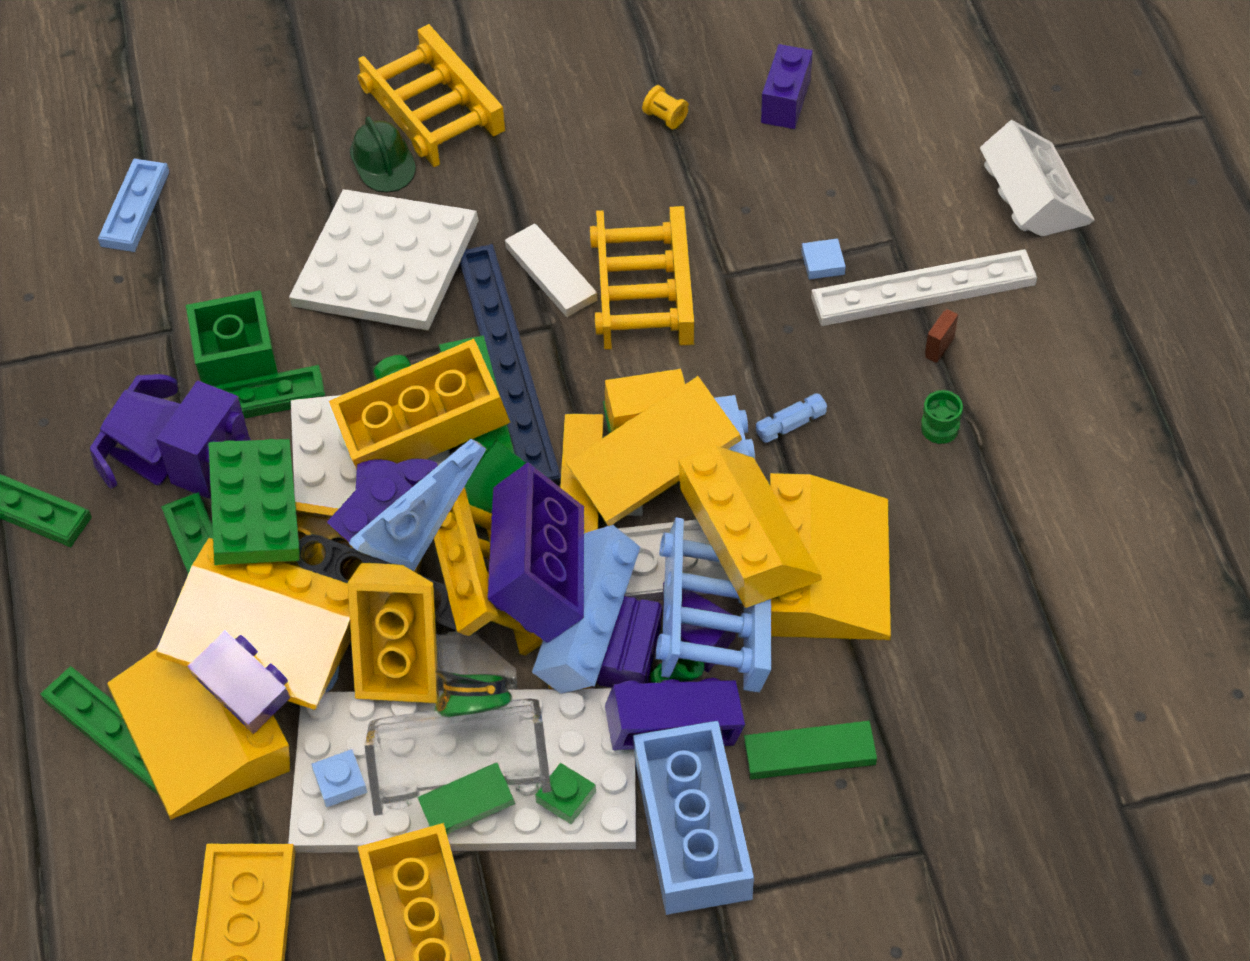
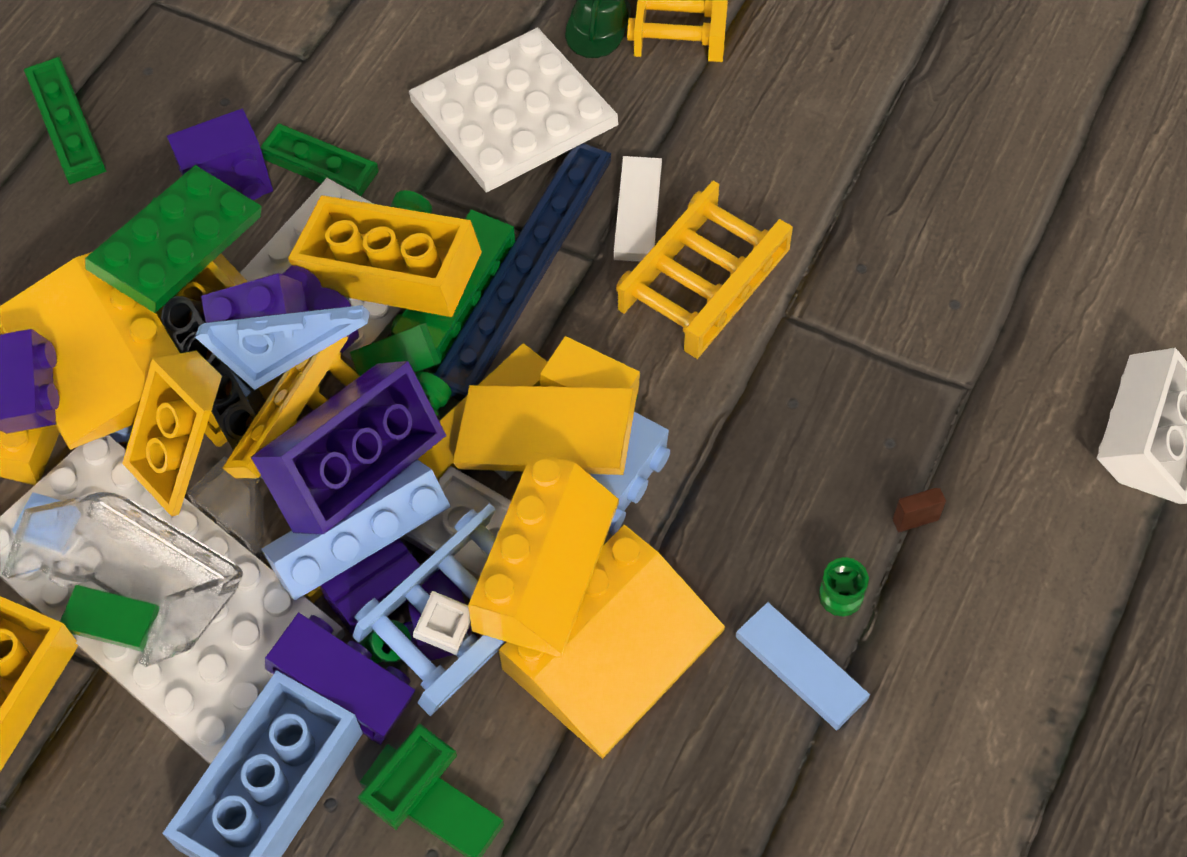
camera: 40 degrees right, 5 degrees up
(136, 424) = (179, 110): dark purple piece -> none
(231, 338) = (324, 95): green brick -> none
(471, 693) = (190, 528): piece -> none
(568, 793) = (191, 676): green plate -> none
(665, 107) = (873, 127): yellow bush -> none
(723, 615) = (443, 623): none -> white tile
(782, 741) = (407, 776): none -> green tile
(786, 86) = (1000, 177): dark purple brick -> none
(791, 418) = (711, 486): light blue axle -> none
(823, 259) = (884, 360): light blue tile -> none
(923, 287) = (955, 453): white tile -> none
(960, 486) = (802, 666): none -> light blue tile

